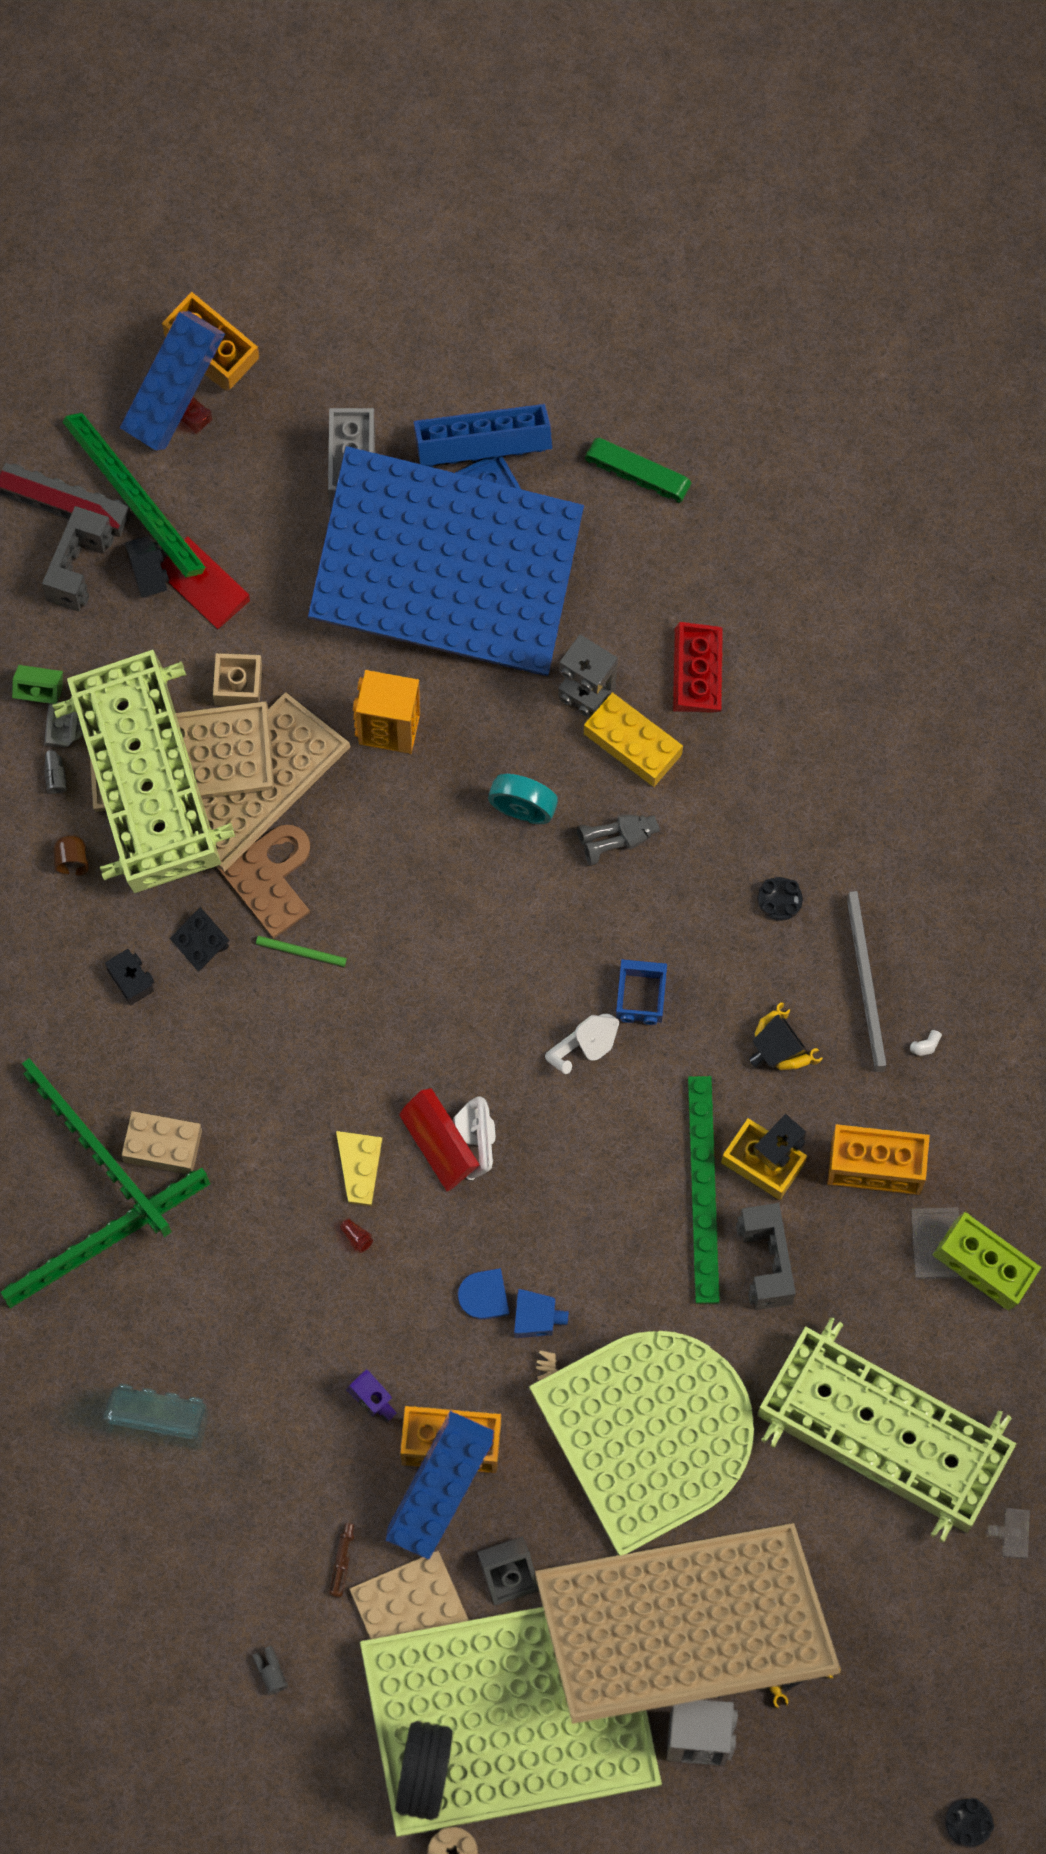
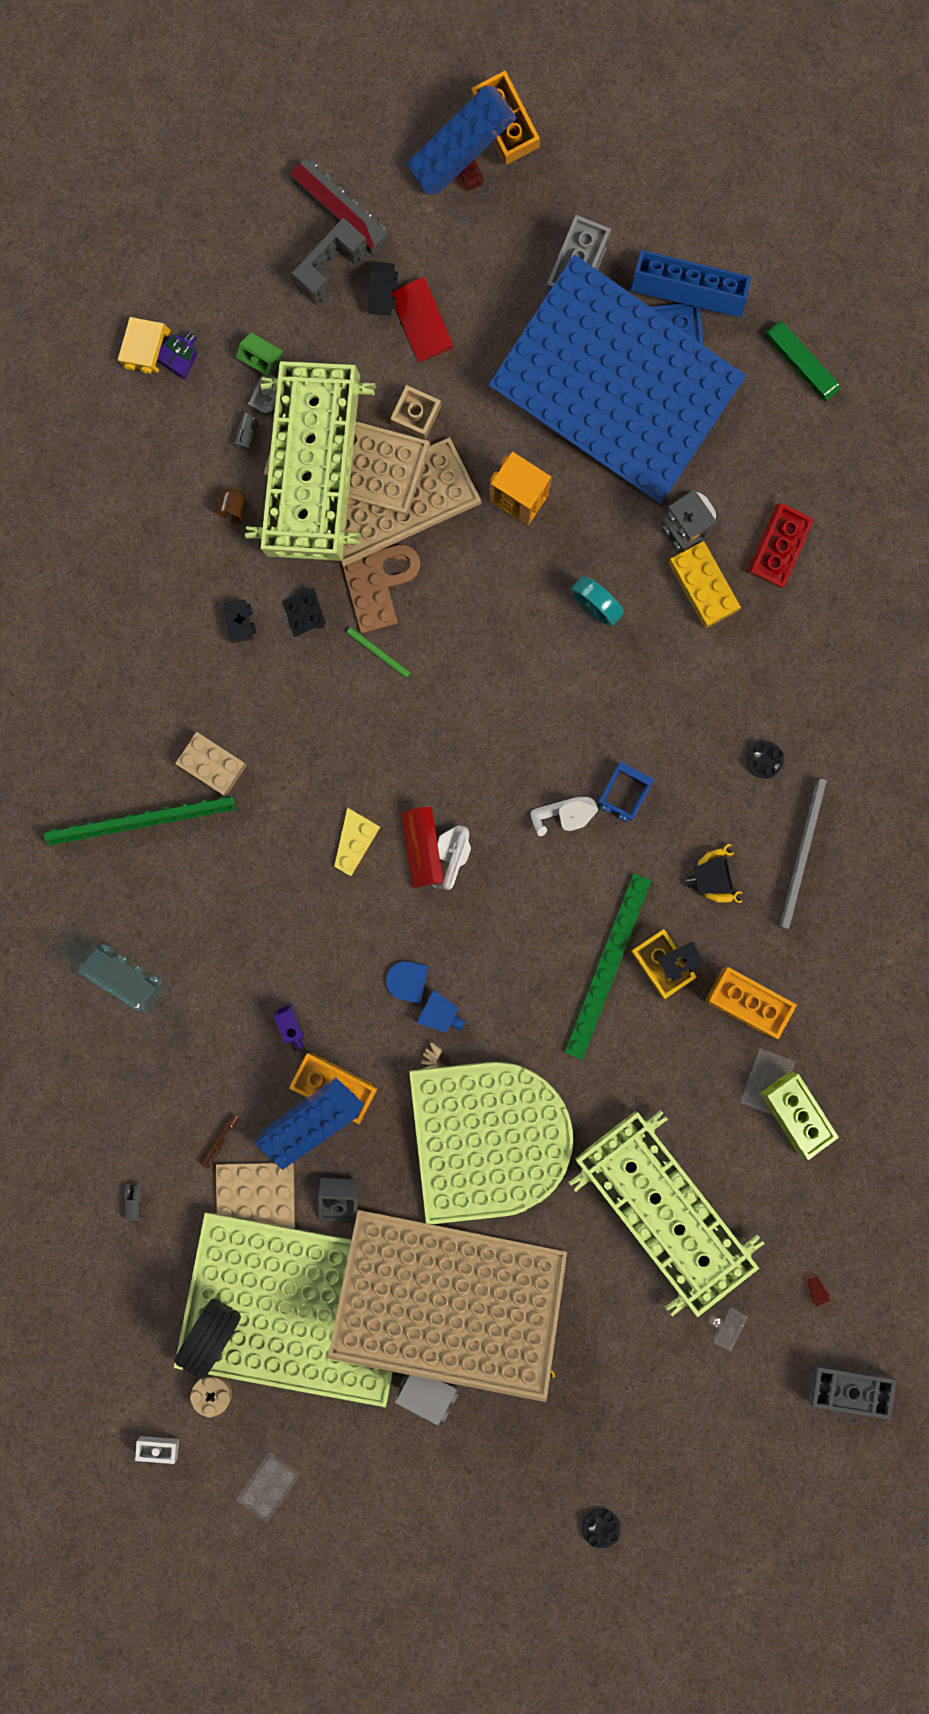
camera: 25 degrees right, 15 degrees up
(101, 1155) = (159, 757): green plate -> none
(134, 495) = (395, 224): green plate -> none
(356, 1235) = (329, 896): clear red cone -> none
(632, 832) = (672, 660): dark grey piece -> none
(760, 1224) = (628, 1070): dark grey plate -> none
(927, 1046) = (827, 924): white arm -> none

